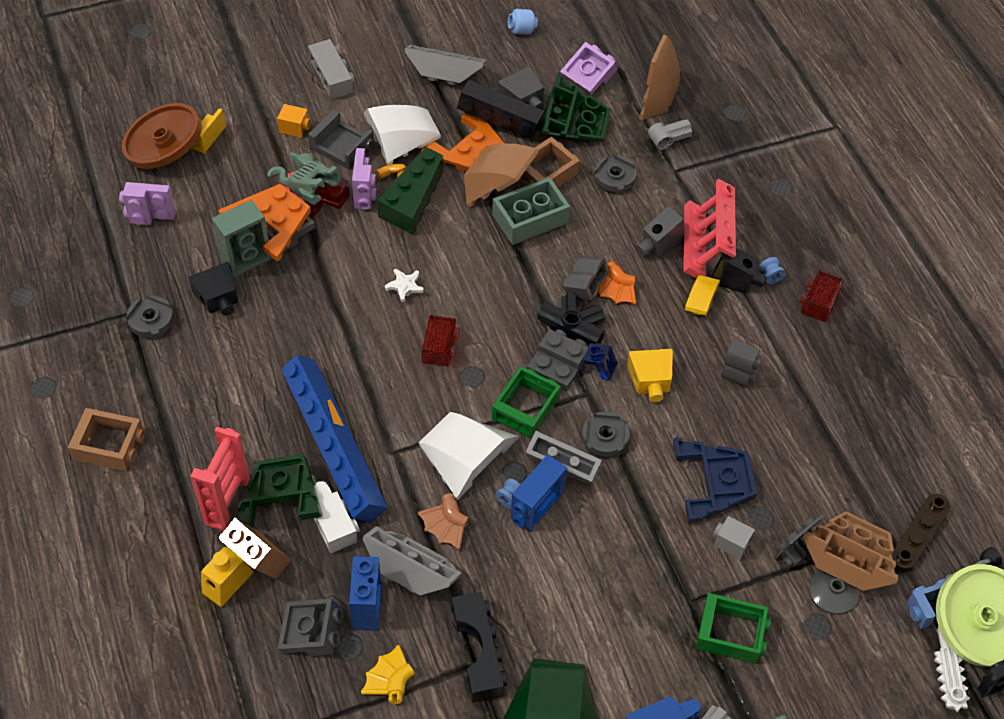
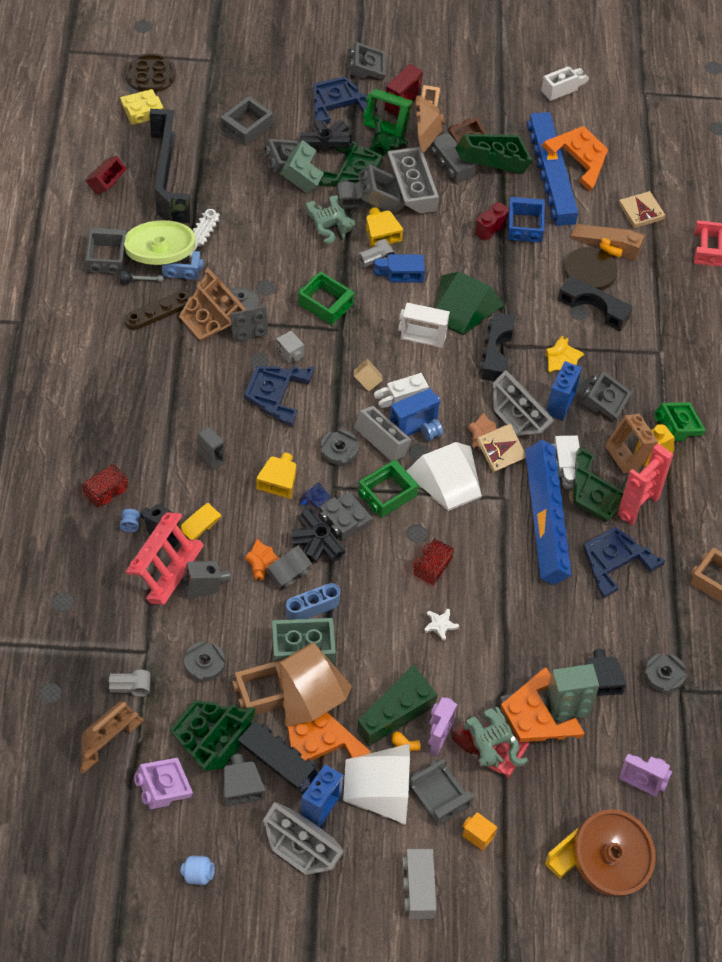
camera: 160 degrees left, 0 degrees up
(202, 628) = (680, 420): none -> green plate
(248, 417) = (613, 551): none -> dark blue wing
(417, 501) = (501, 448): none -> tan tile
(445, 87) = (321, 799): none -> blue window
(542, 256) = (319, 596): none -> medium blue beam
(565, 528) = (401, 390): none -> white hinge
(585, 625) = (424, 334): none -> white window
(621, 539) = (368, 375): none -> tan panel

